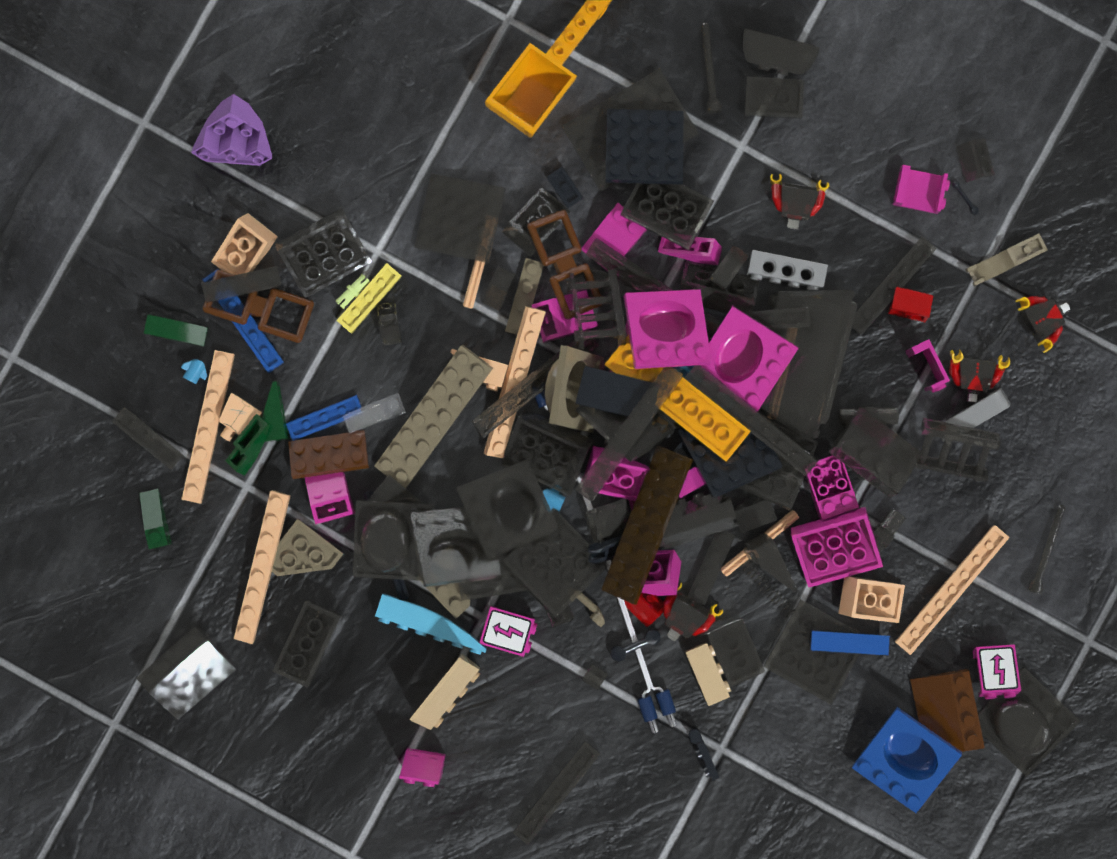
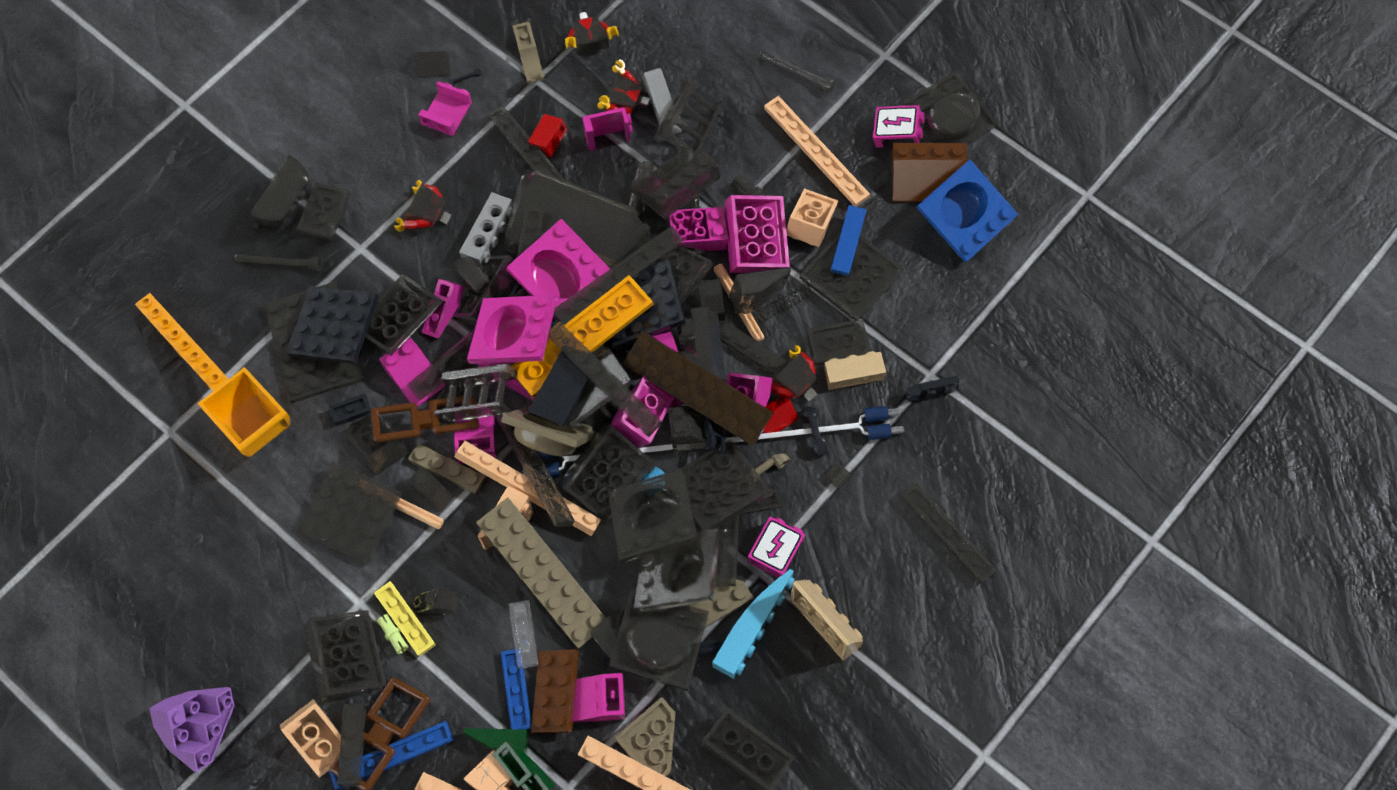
camera: 80 degrees left, 20 degrees down
(422, 767) = (900, 655): dark pink slope -> none

